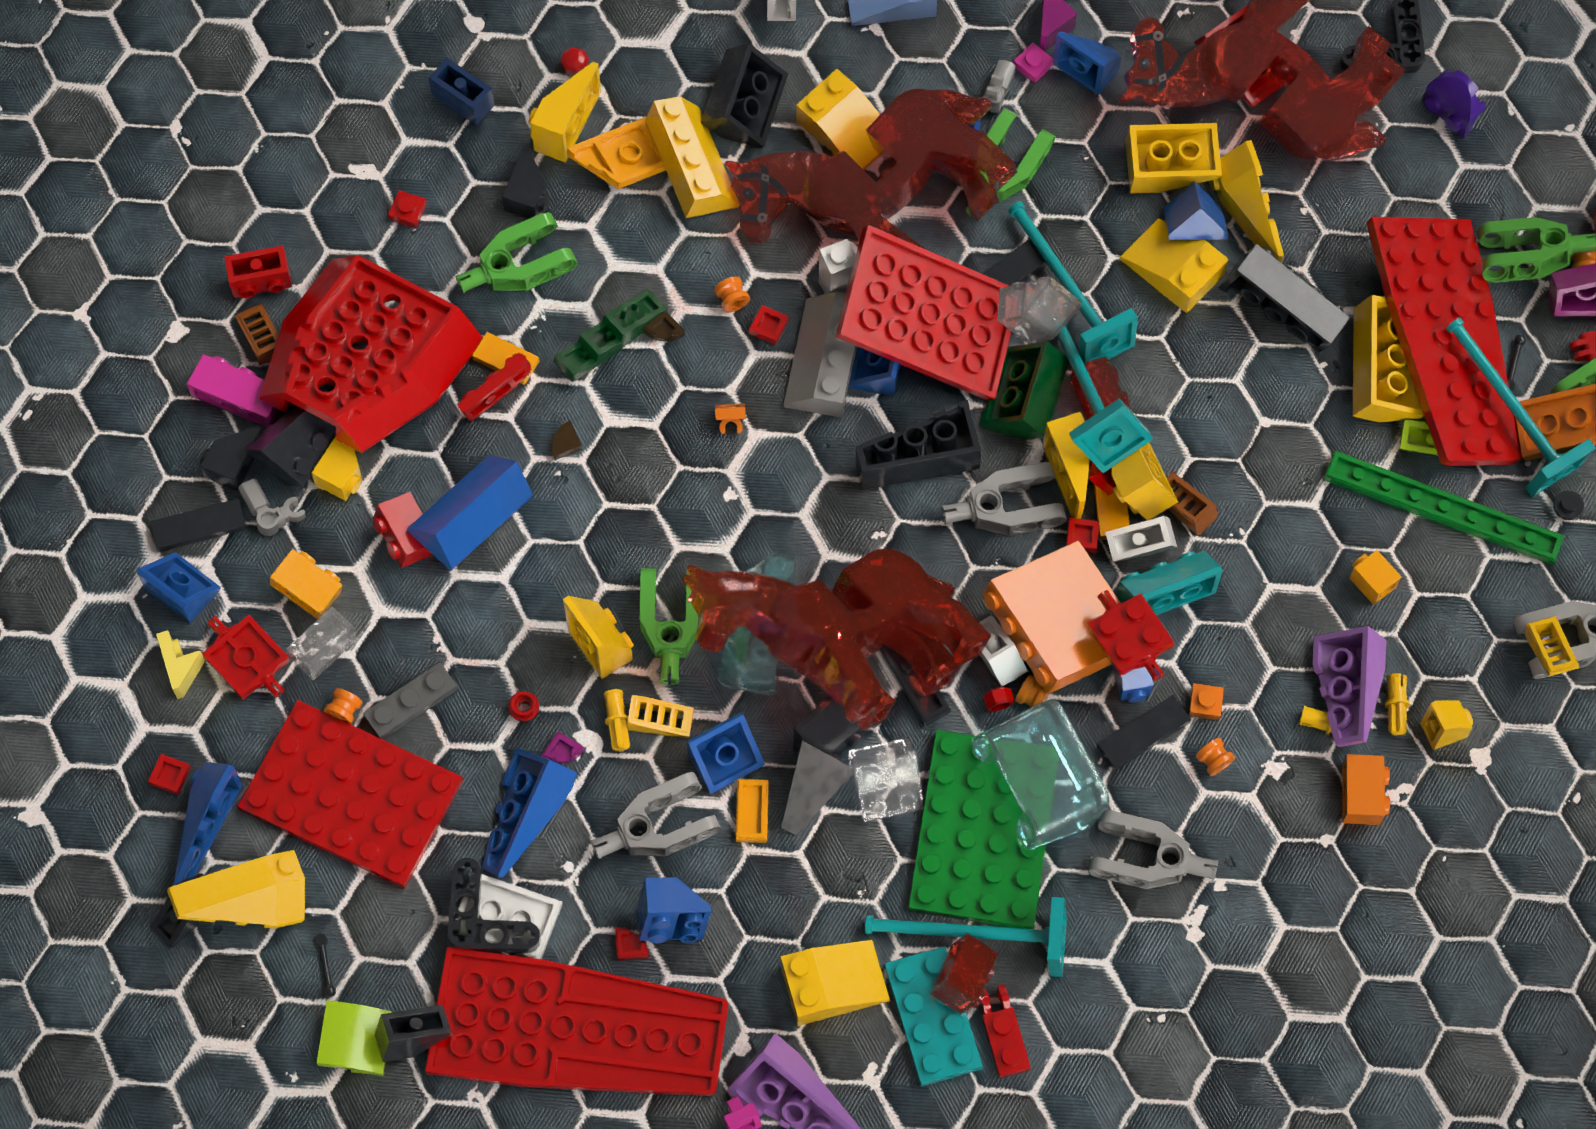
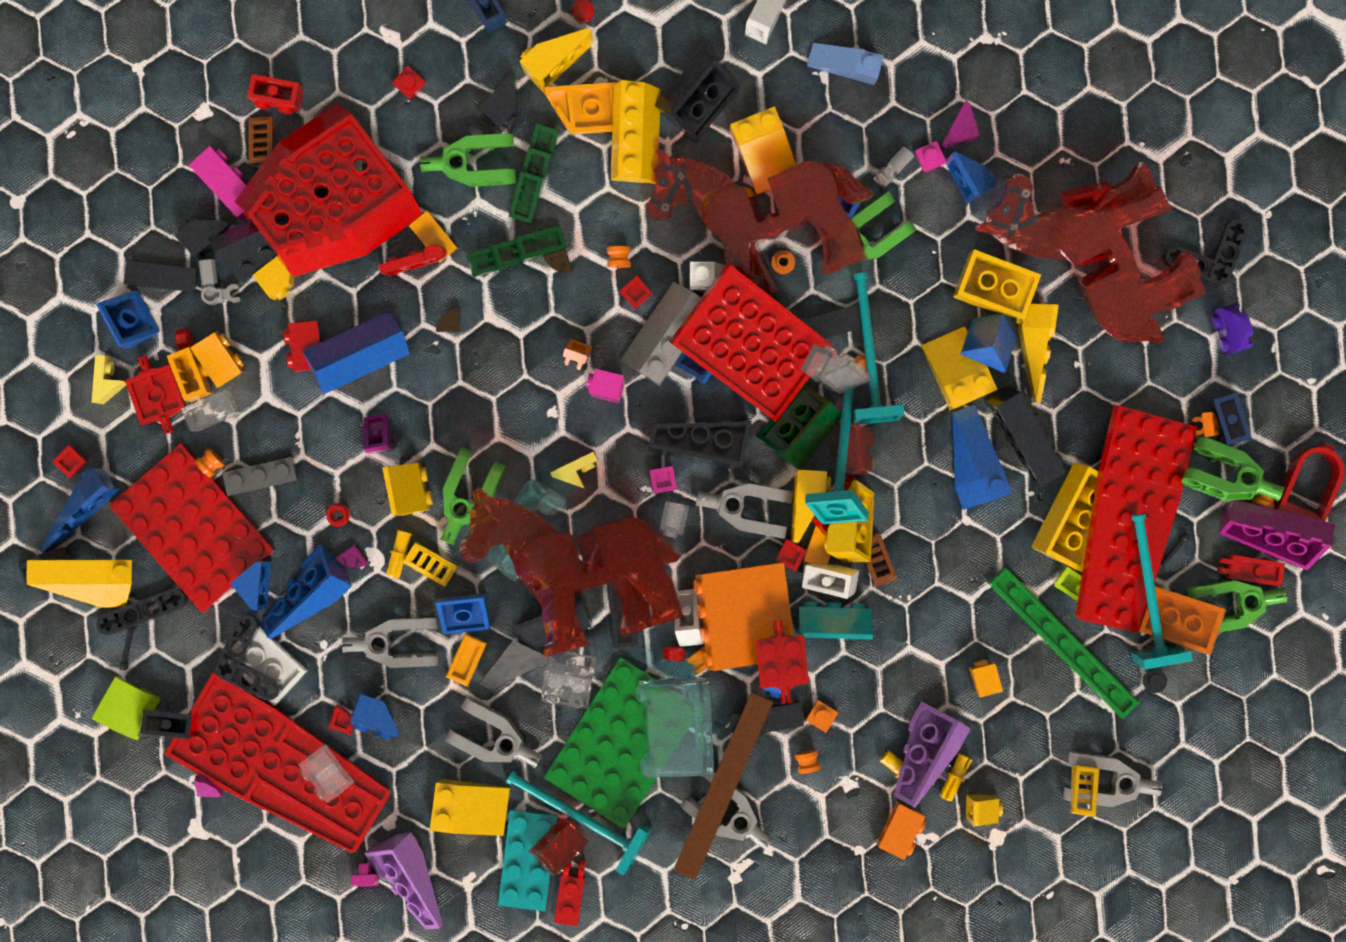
camera: 30 degrees right, 20 degrees up
(256, 580) = (183, 338): none -> red tile
(279, 611) = (189, 375): none -> light orange brick
(324, 911) = (141, 609): none -> black beam
(453, 819) = (254, 585): none -> blue slope
(495, 1092) = (206, 788): none -> magenta tile
(534, 597) = (377, 434): none -> magenta slope
(594, 245) = (534, 173): none -> dark green slope
(639, 1004) = (325, 774): none -> clear brick
(782, 425) = (606, 385): none -> dark pink brick
(784, 539) = (569, 472): none -> light yellow slope
(818, 905) = (508, 730): none -> light grey piece
(894, 512) = (663, 479): none -> dark pink plate
(922, 237) = (783, 269): none -> orange plate
(928, 541) = (673, 519): none -> clear brick
(1129, 819) = (723, 786): none -> reddish brown tile
(1249, 356) = (976, 464): none -> blue wedge
(1482, 208) = (1210, 424): none -> orange tile
(1504, 191) = (1232, 419): none -> dark blue brick

